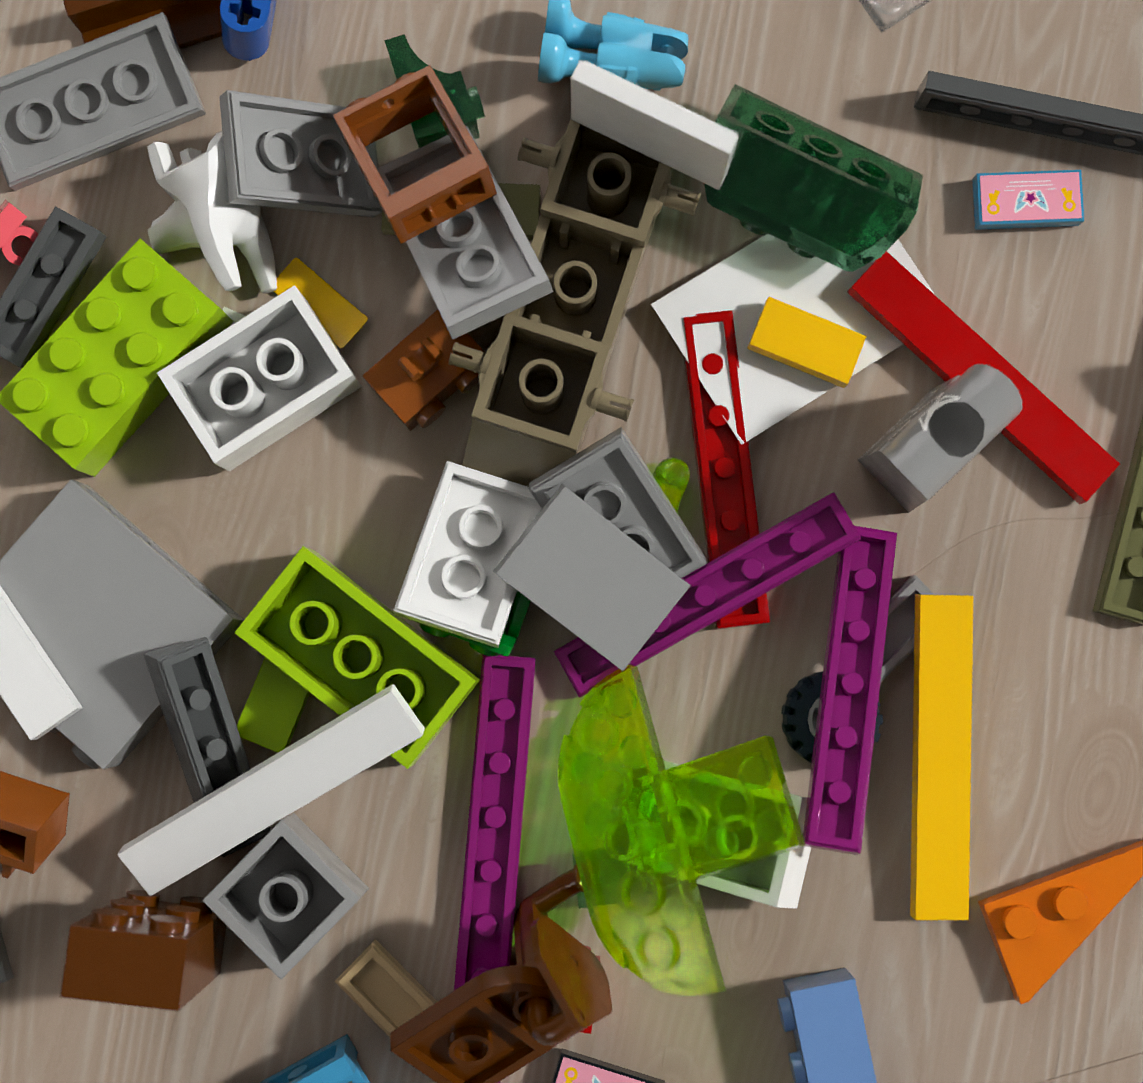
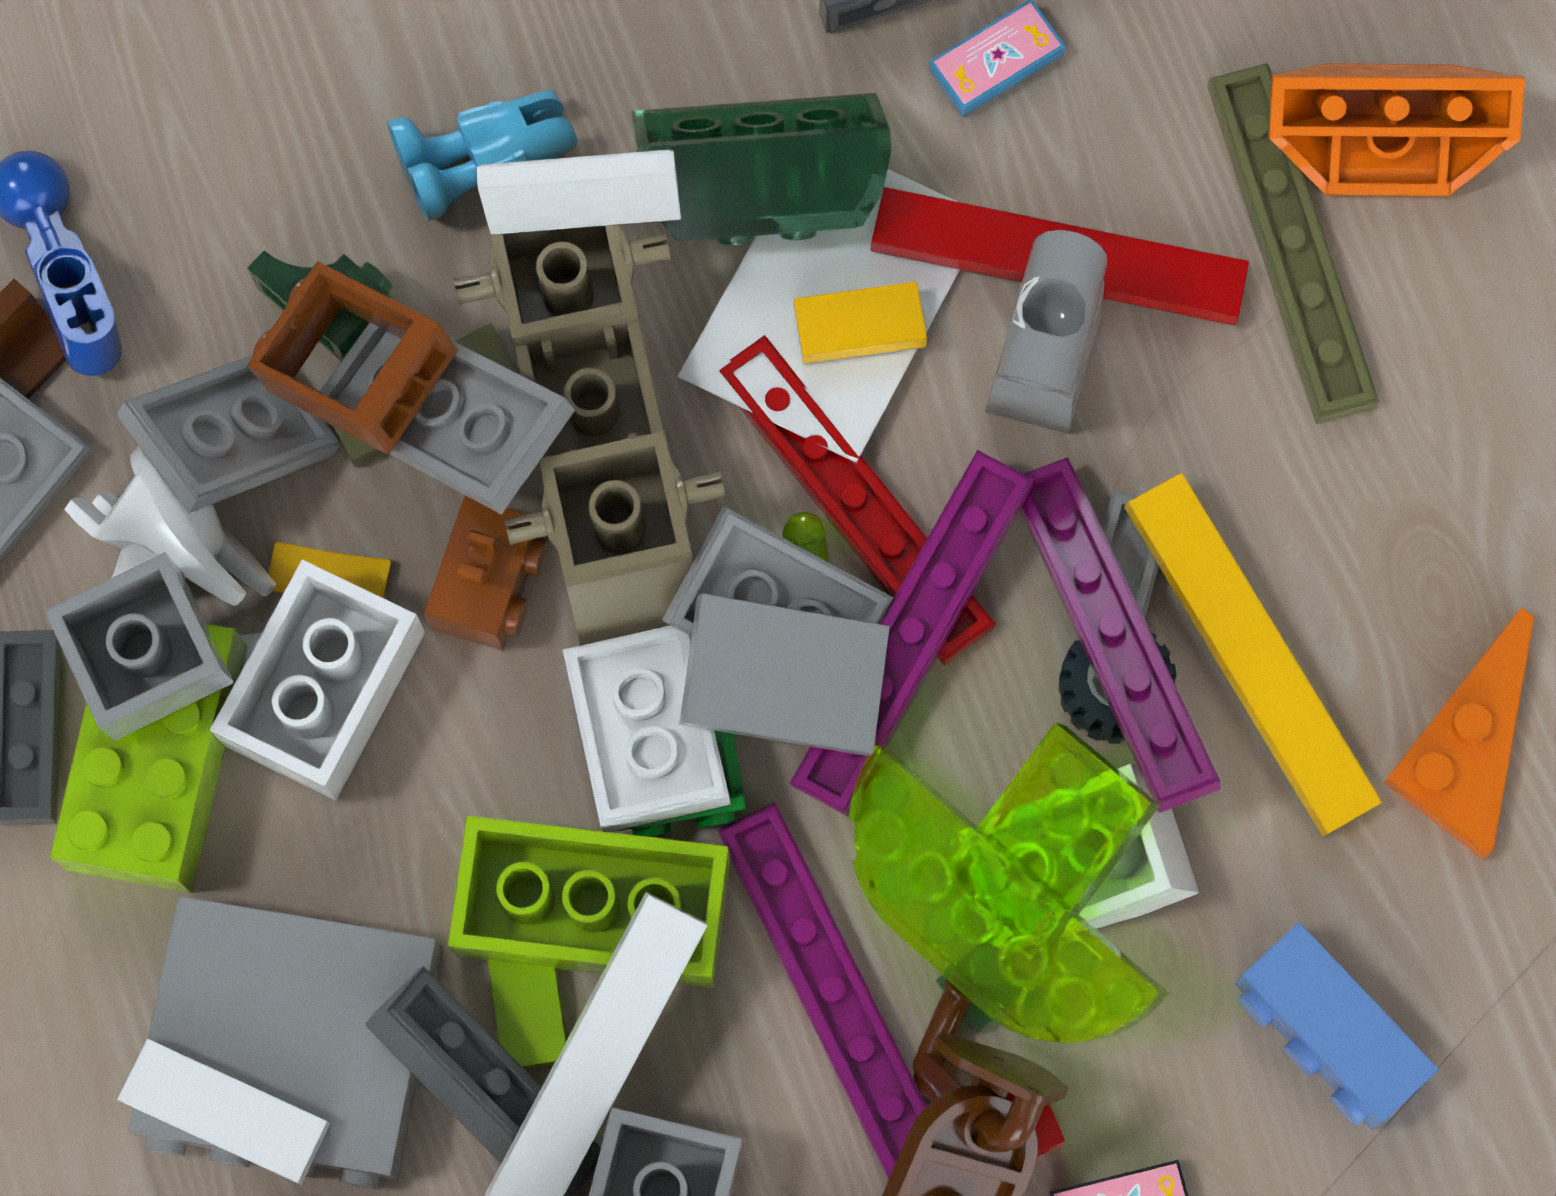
camera: 30 degrees left, 10 degrees down
(129, 283) = (138, 646): none -> light grey brick

